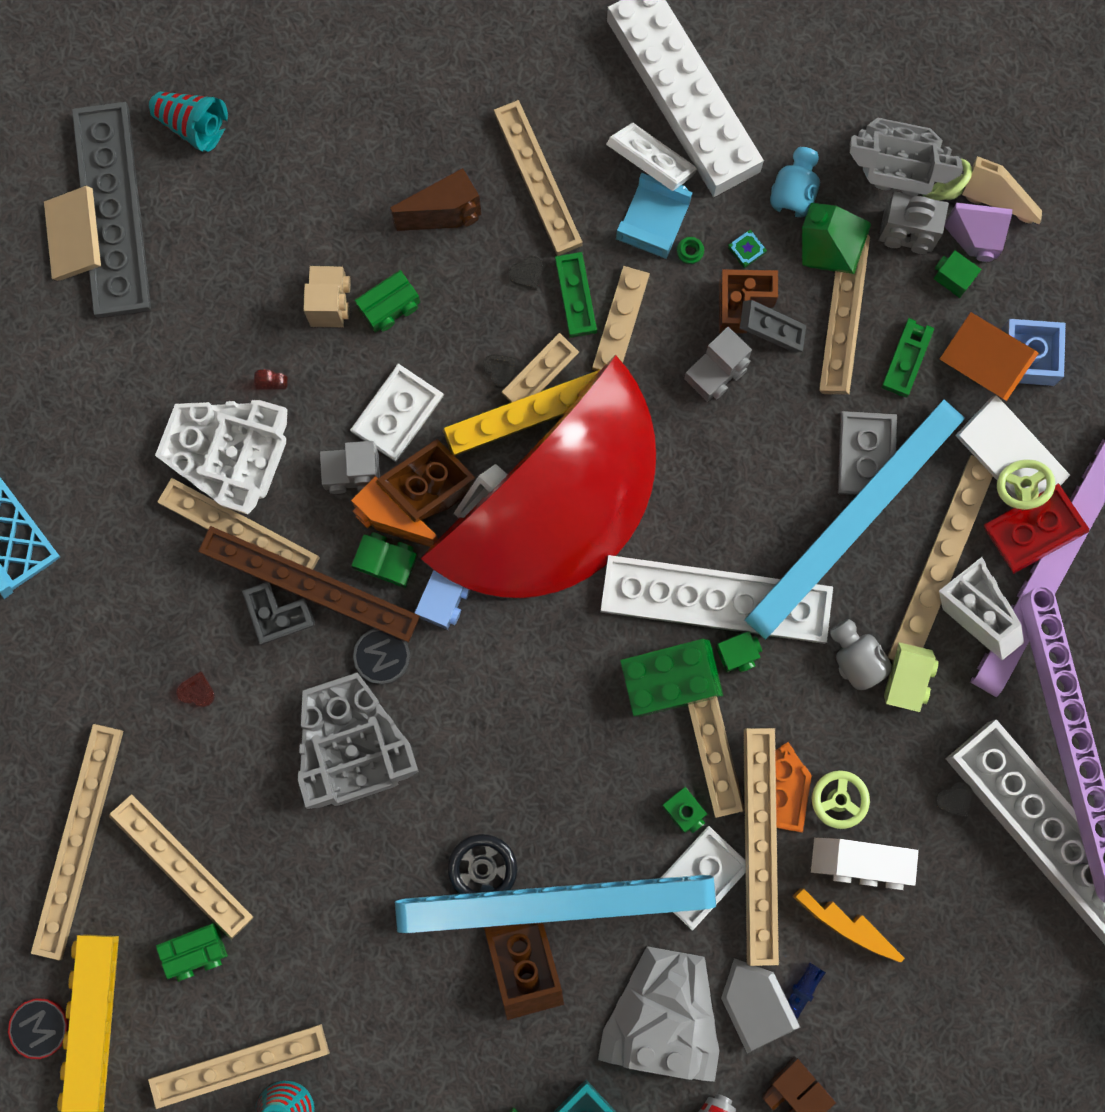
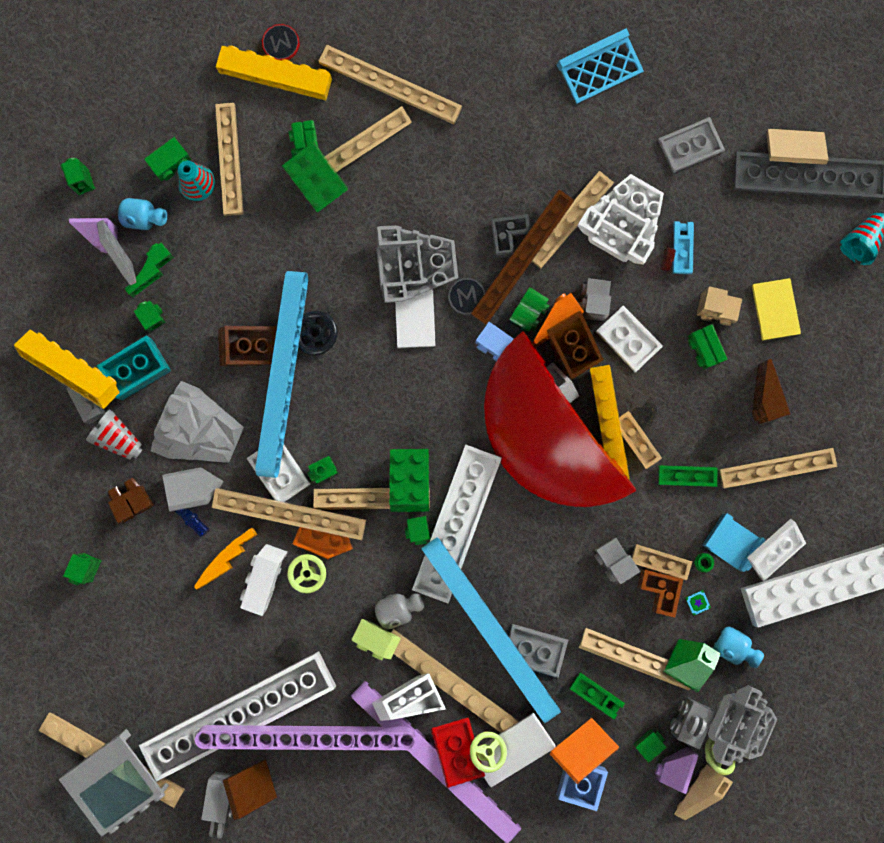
camera: 105 degrees right, 5 degrees up
(94, 381) = (691, 145): none -> light grey tile
(196, 690) = (470, 174): clear red tile -> none
(245, 920) = (315, 177): none -> green brick
(248, 361) = (684, 248): none -> medium azure plate
(313, 220) = (776, 309): none -> light yellow tile
(435, 722) = (416, 321): none -> white tile
(621, 316) = (665, 504): tan plate -> none
(703, 306) = (661, 562): none -> tan plate
(772, 326) = (636, 604): dark grey plate -> none

